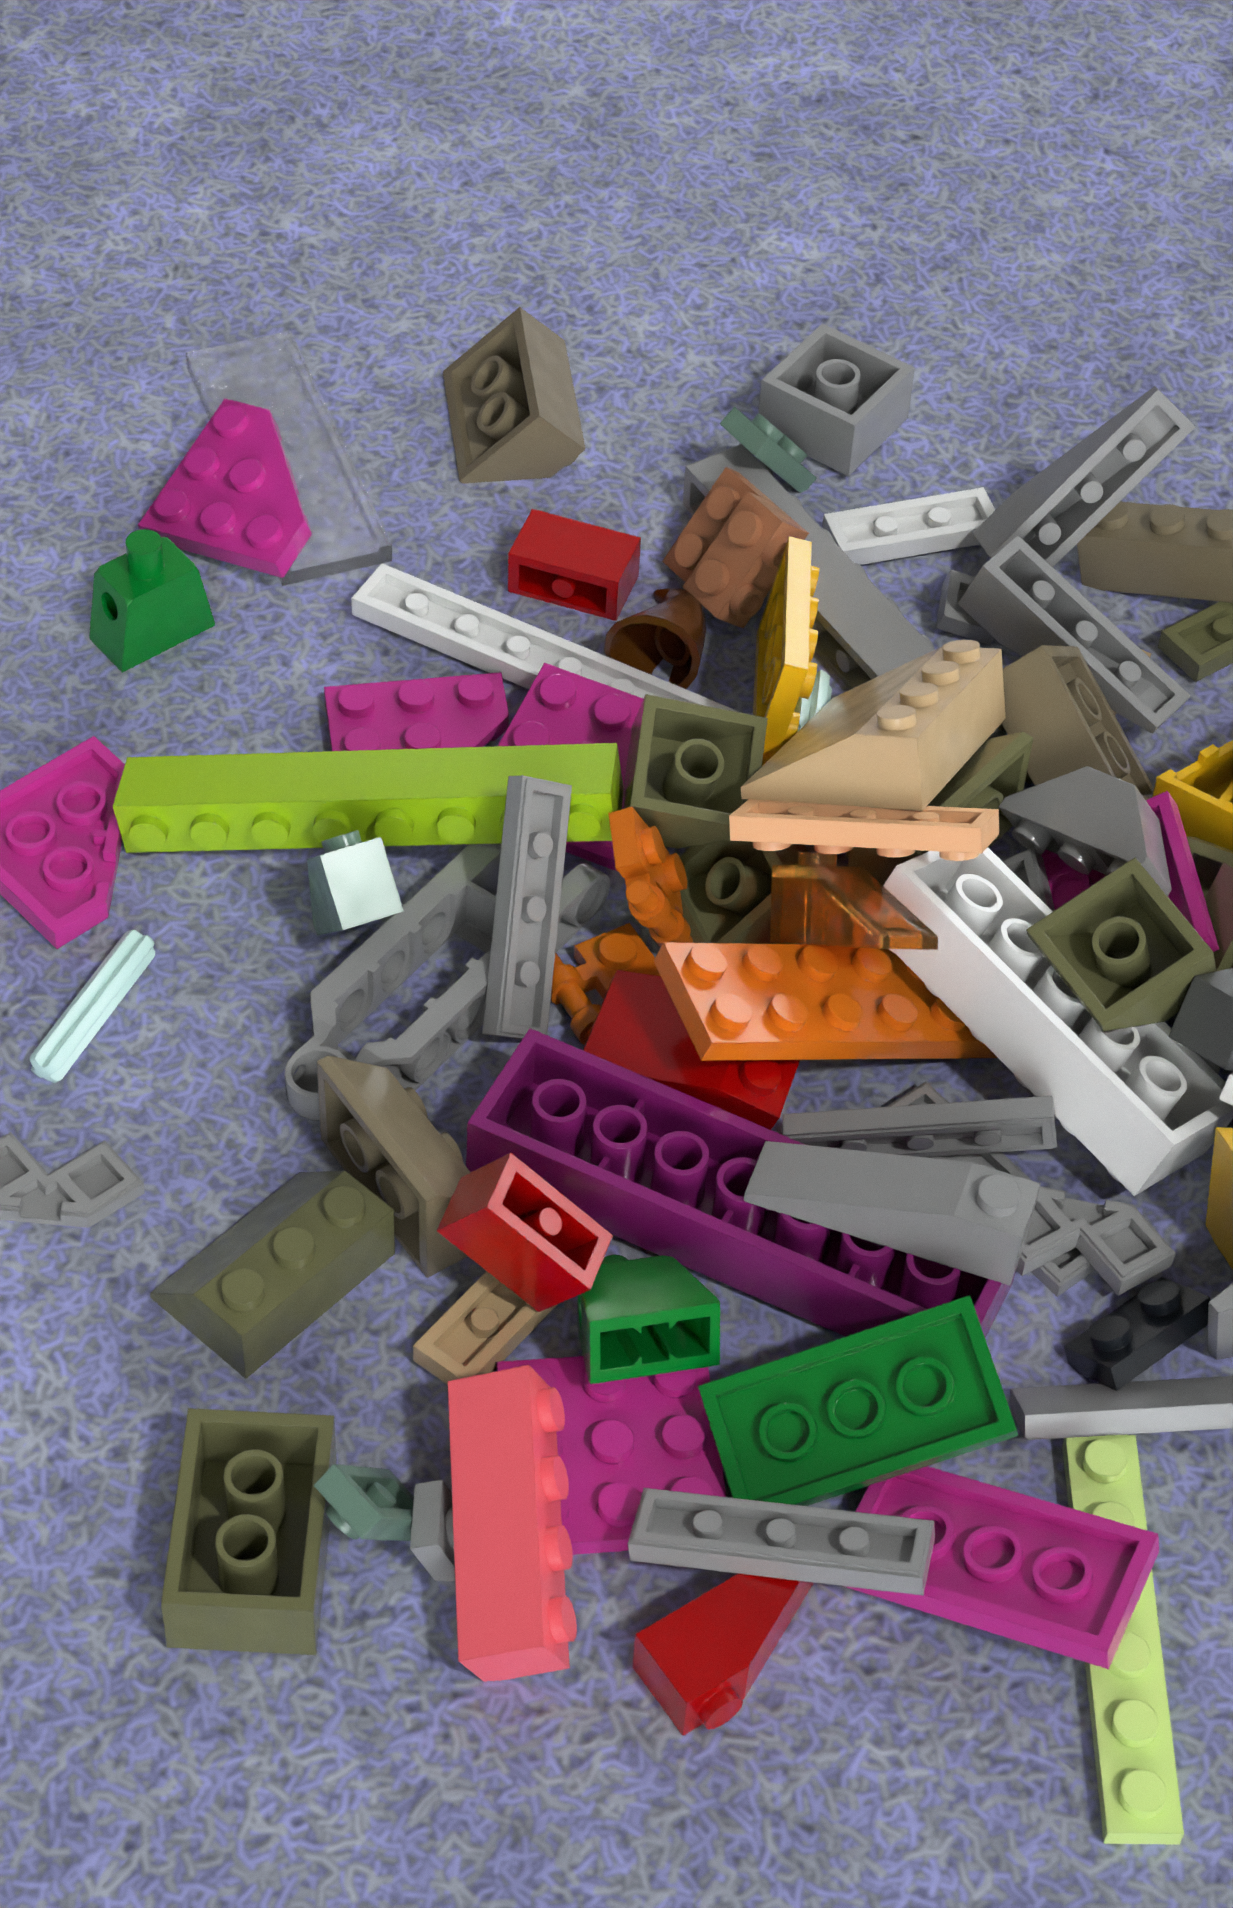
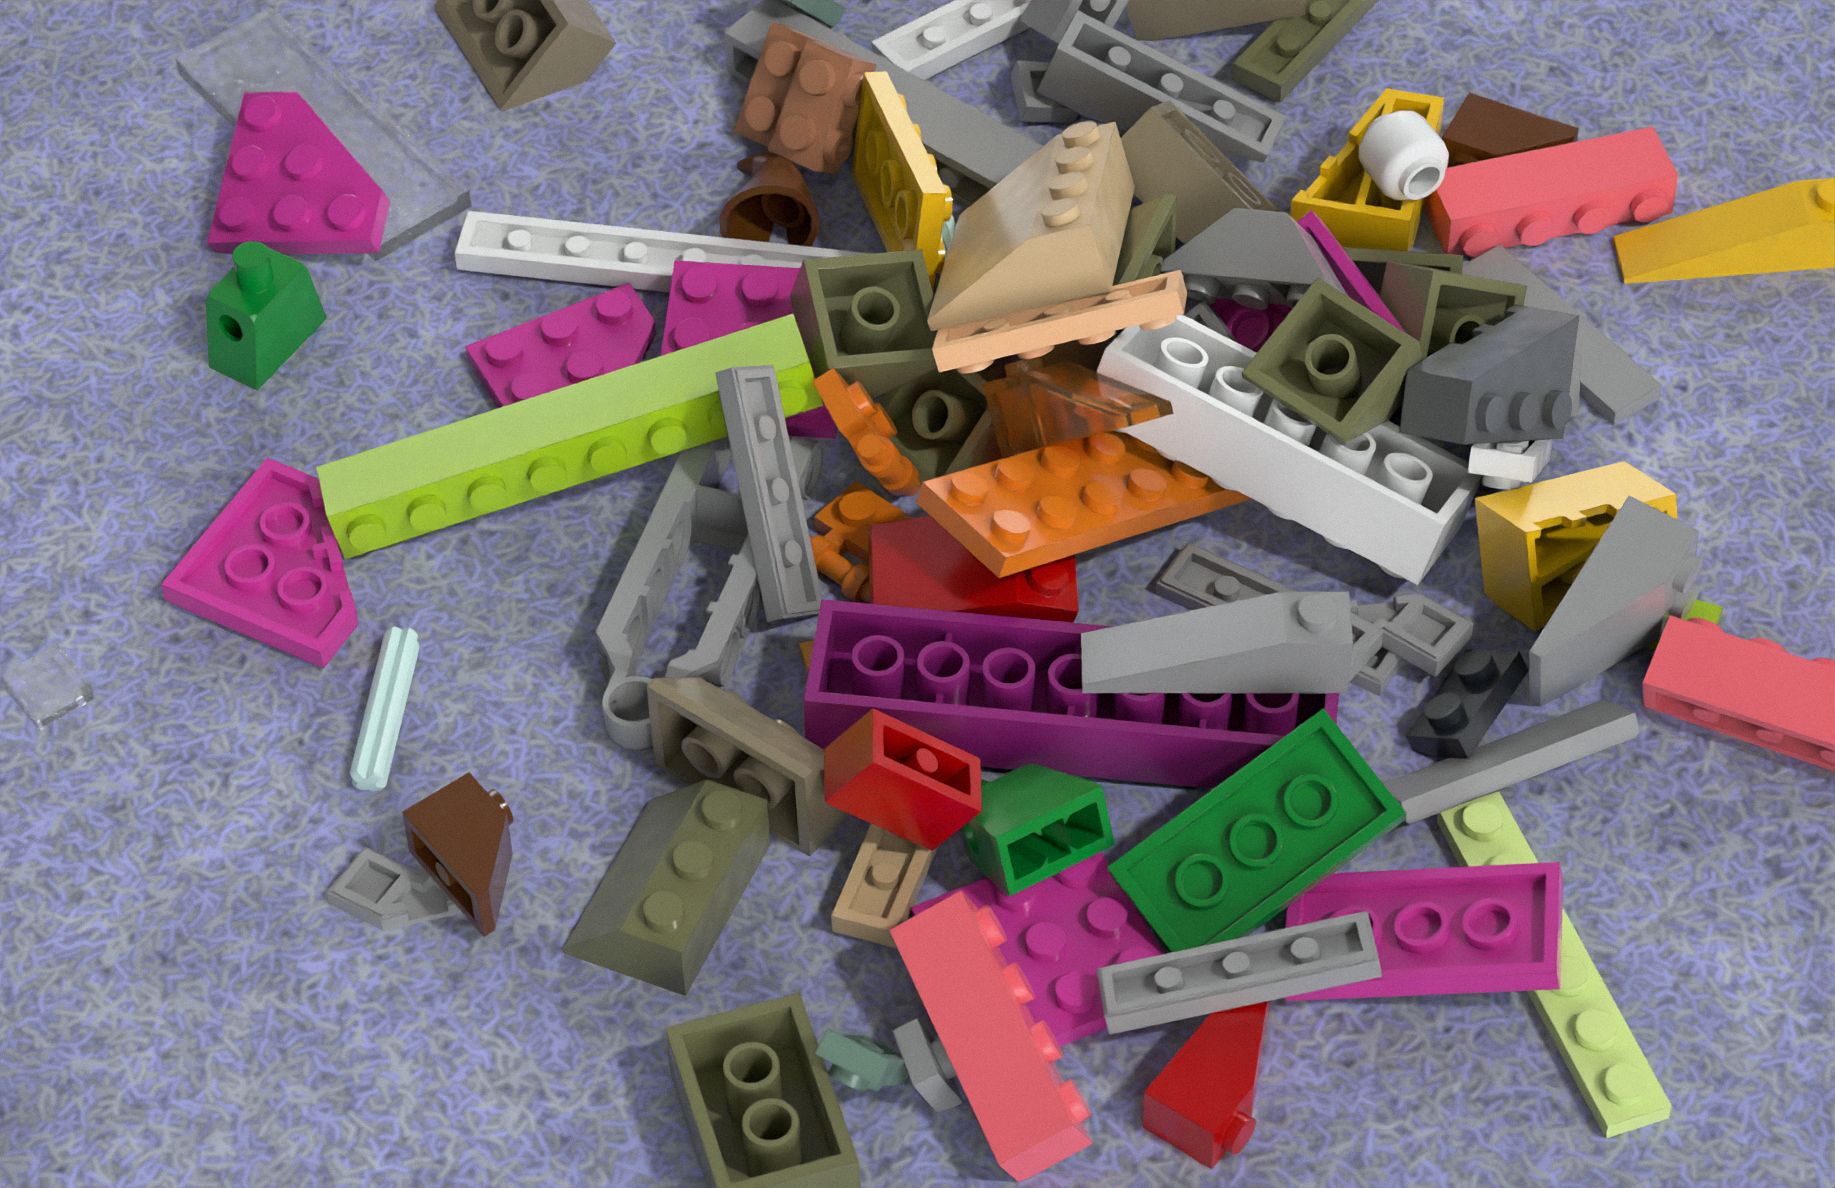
camera: 15 degrees left, 0 degrees up
(95, 1163) = (464, 846): none -> reddish brown slope
(351, 884) = (593, 521): slope -> none
(574, 564) = (653, 158): red brick -> none
(932, 1128) = (1220, 577): light grey tile -> none

